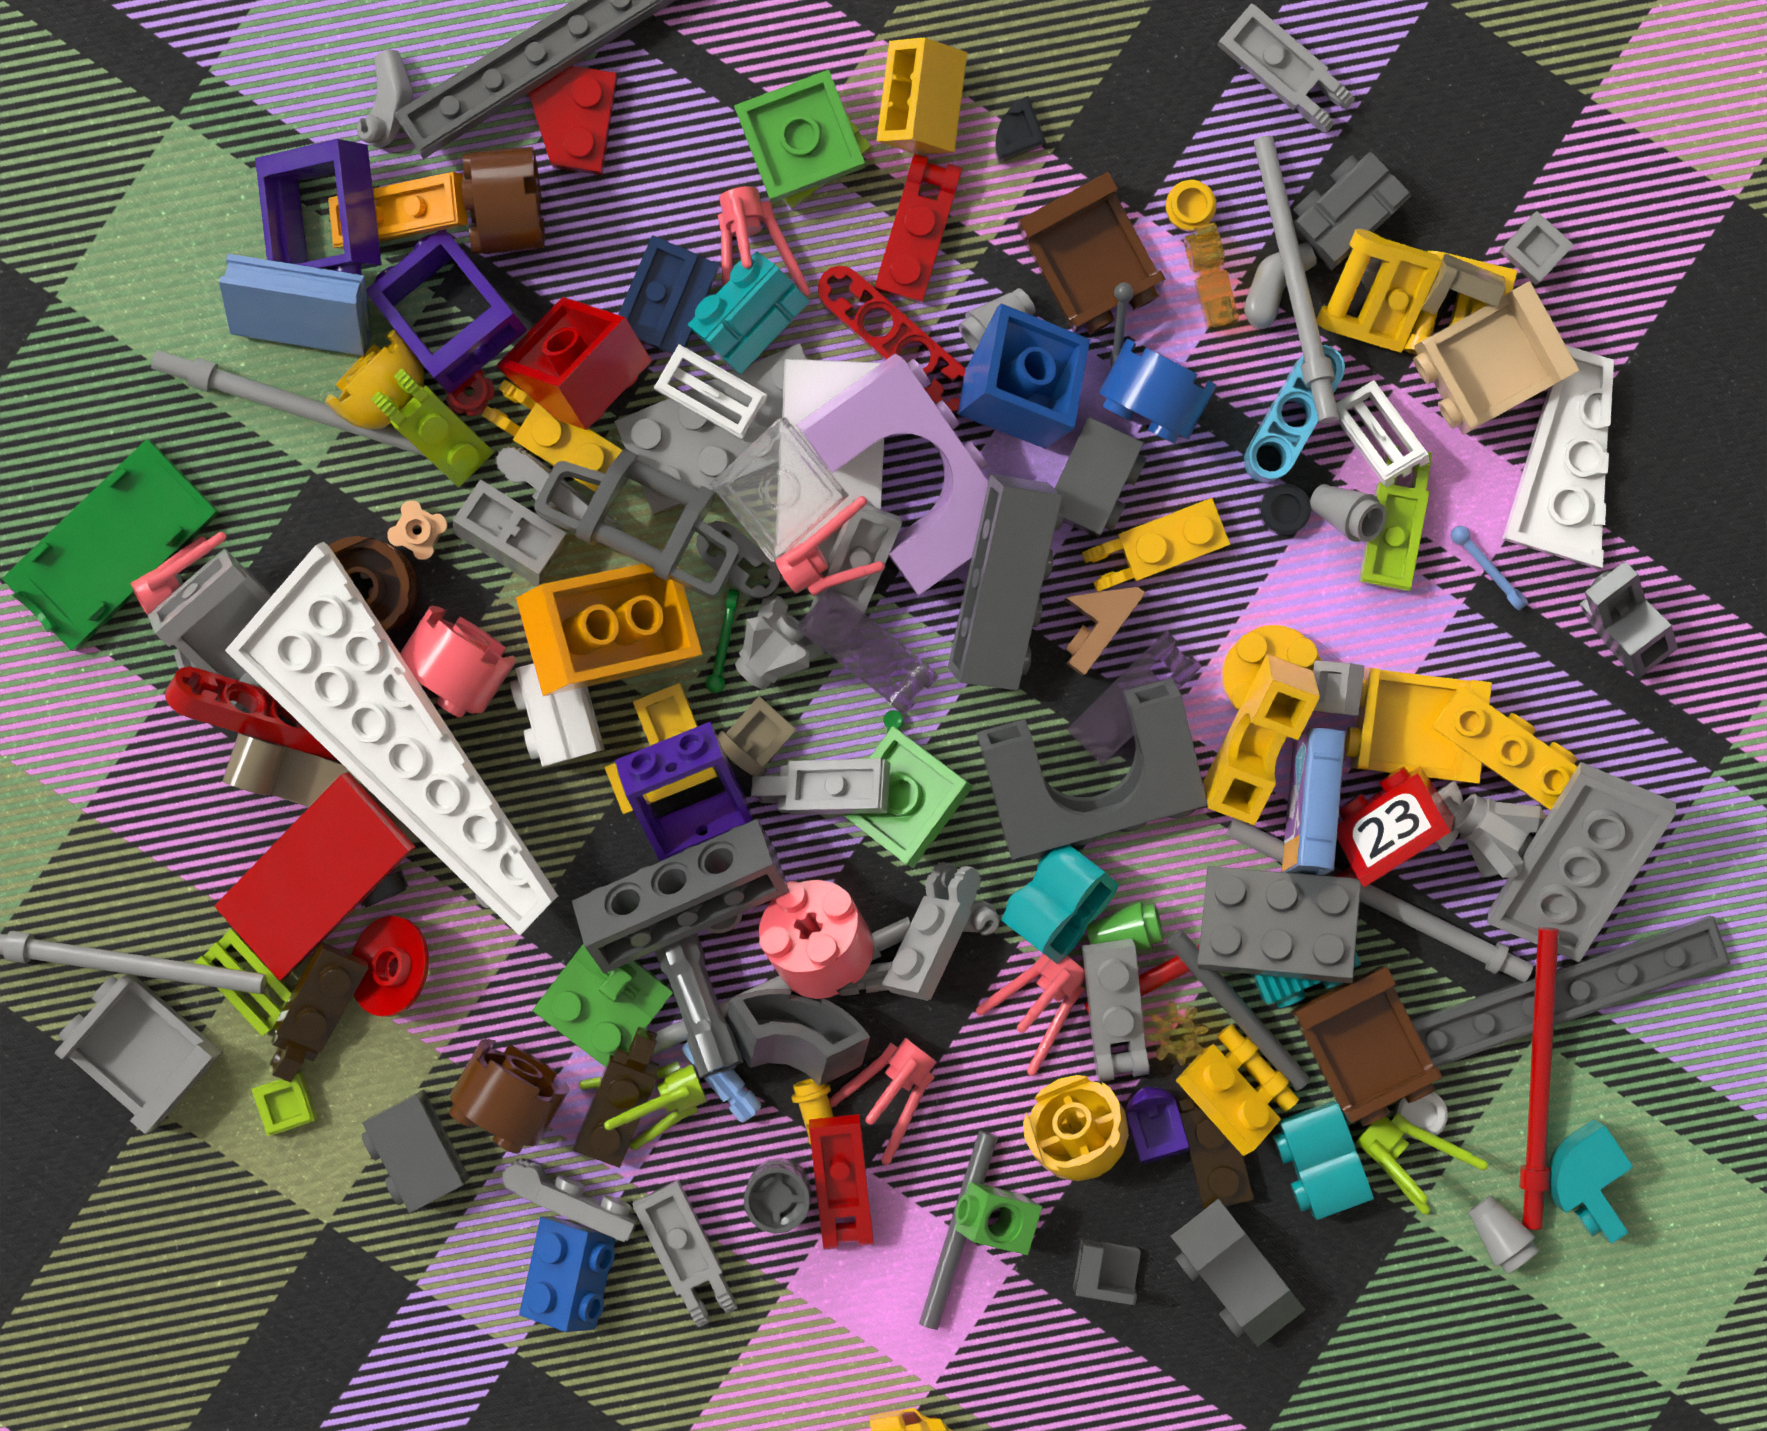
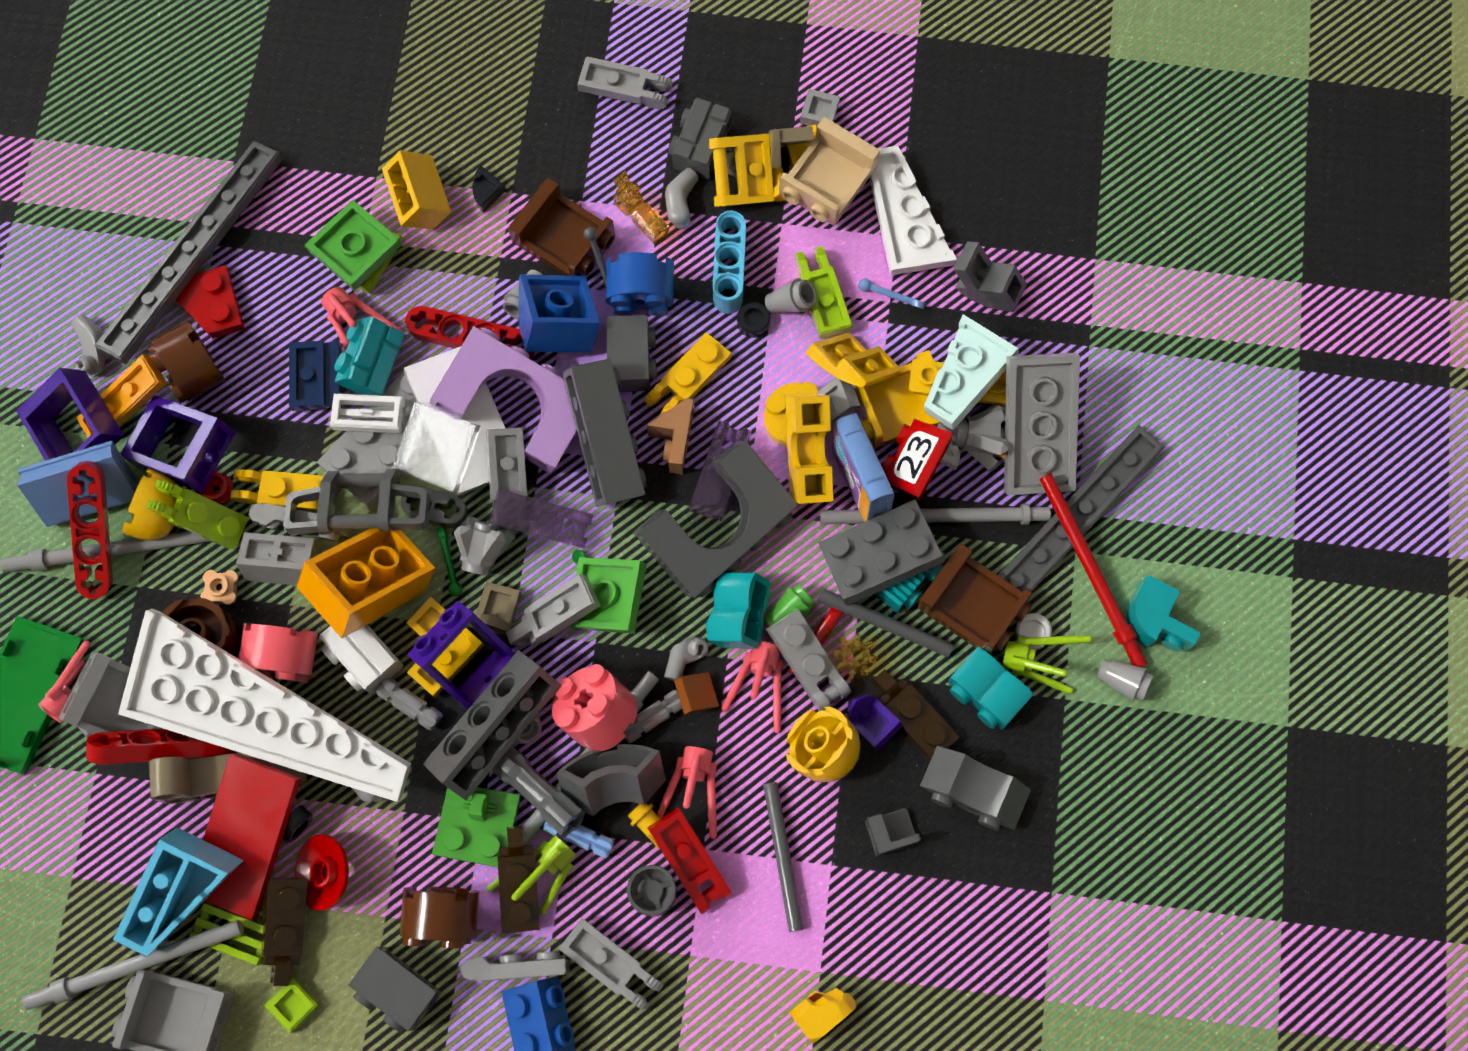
camera: 25 degrees left, 15 degrees down
(206, 904) = (172, 887): none -> medium azure wedge
(282, 379) = (94, 530): none -> red beam
(576, 361) = (275, 435): red slope -> none
(589, 805) = (409, 703): none -> light grey axle
(805, 563) = (472, 480): coral plant -> none
(917, 231) = (452, 268): red plate -> none
(933, 931) = (668, 668): light grey hinge -> none
(959, 980) = (696, 693): none -> dark orange tile
(1014, 1226) = (816, 828): bright green brick -> none
(1190, 205) = (604, 178): yellow plate -> none
(1228, 1097) = (910, 678): yellow plate -> none
(1317, 368) = (727, 222): light grey bar -> none
(1381, 649) = (851, 362): none -> yellow slope
(1400, 464) = (781, 252): white tile -> none
(1523, 749) = (971, 368): none -> light aqua wing

